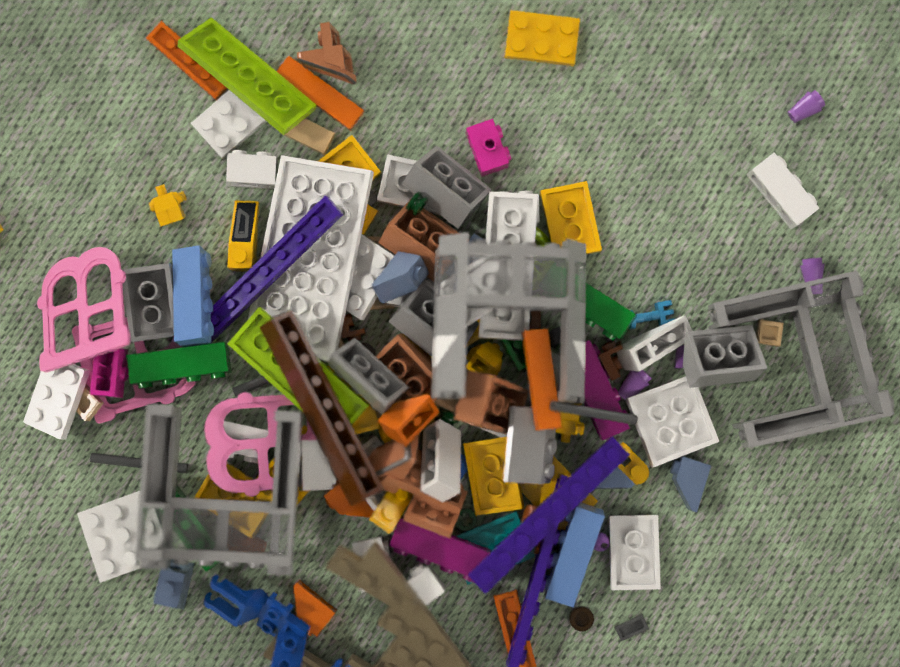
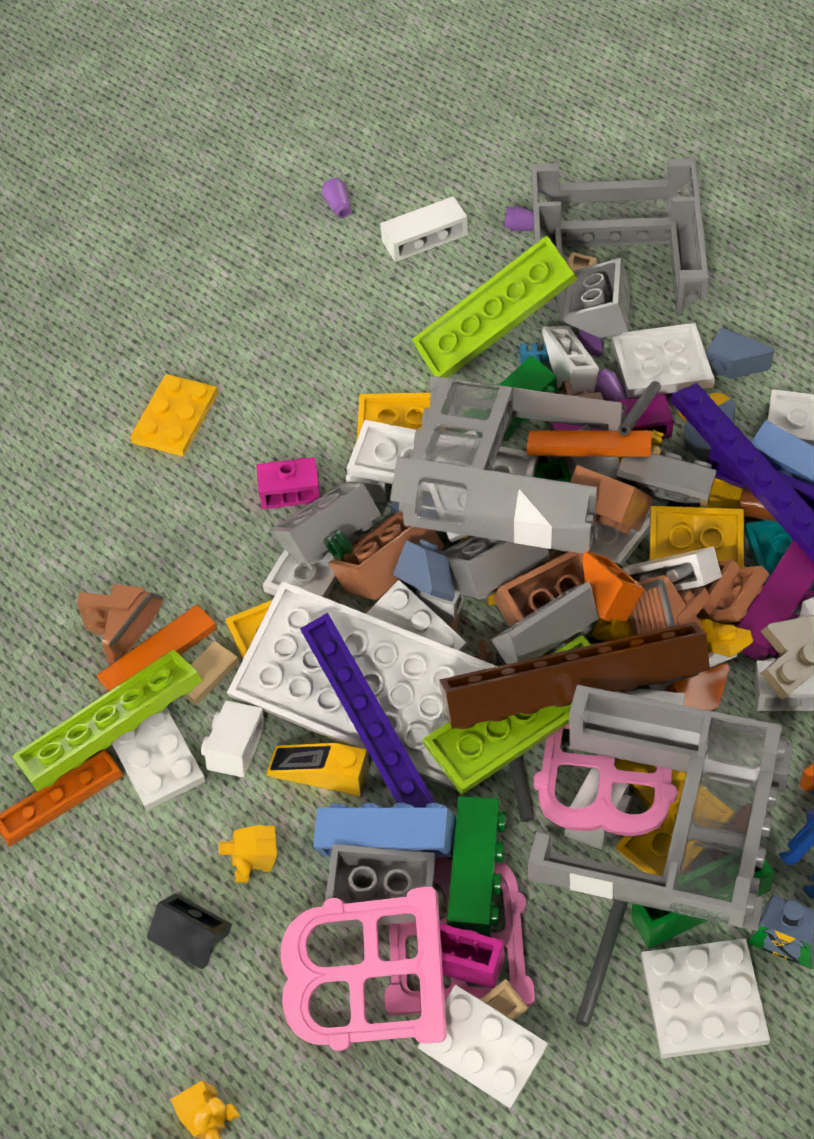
camera: 70 degrees left, 30 degrees down
(107, 181) = (187, 929): none -> black panel
(685, 273) = (494, 308): none -> lime plate

